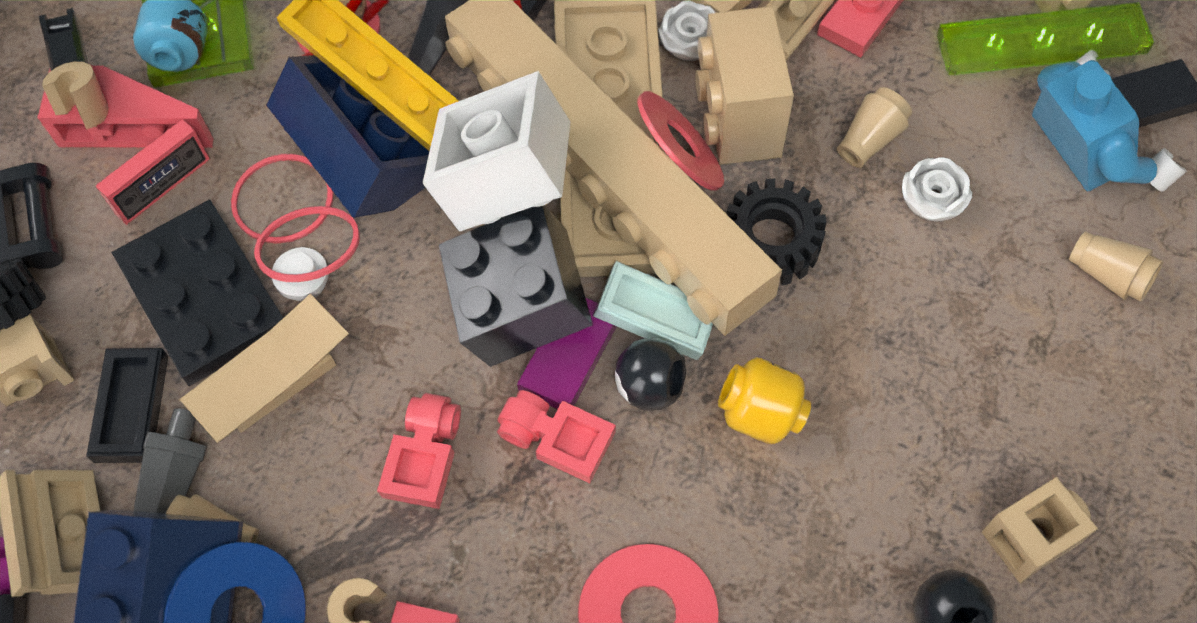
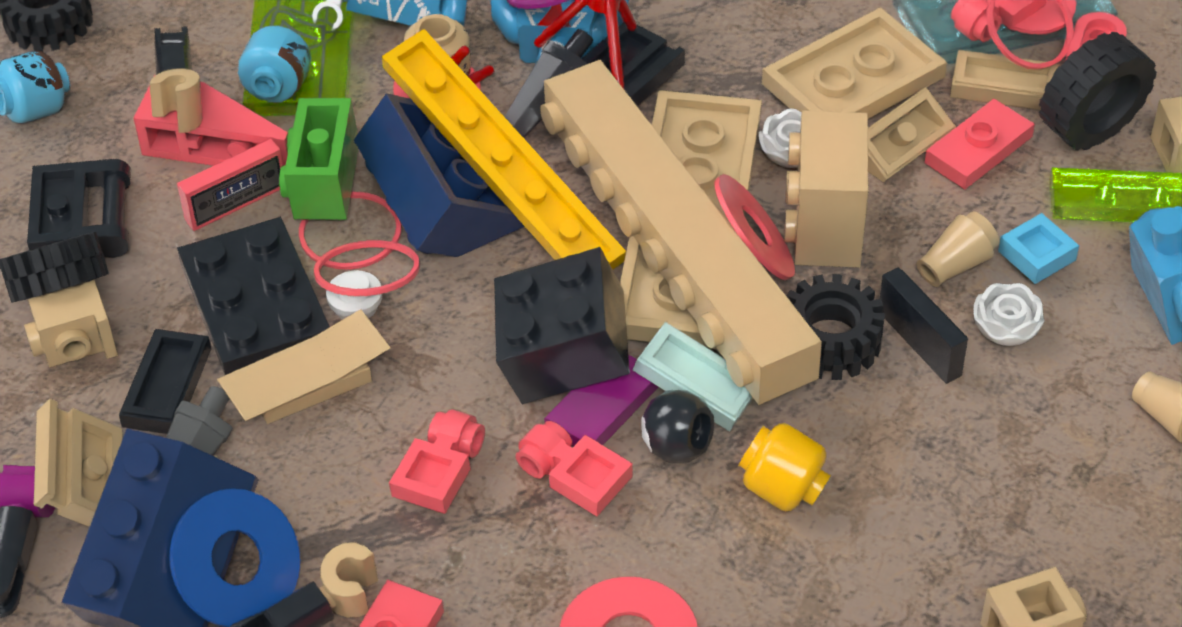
camera: 10 degrees right, 15 degrees down
(237, 131) = (320, 159): none -> bright green brick
(498, 152) = (568, 197): white brick -> none
(861, 217) = (923, 325): none -> black tile
(948, 113) = (1038, 248): none -> medium azure plate

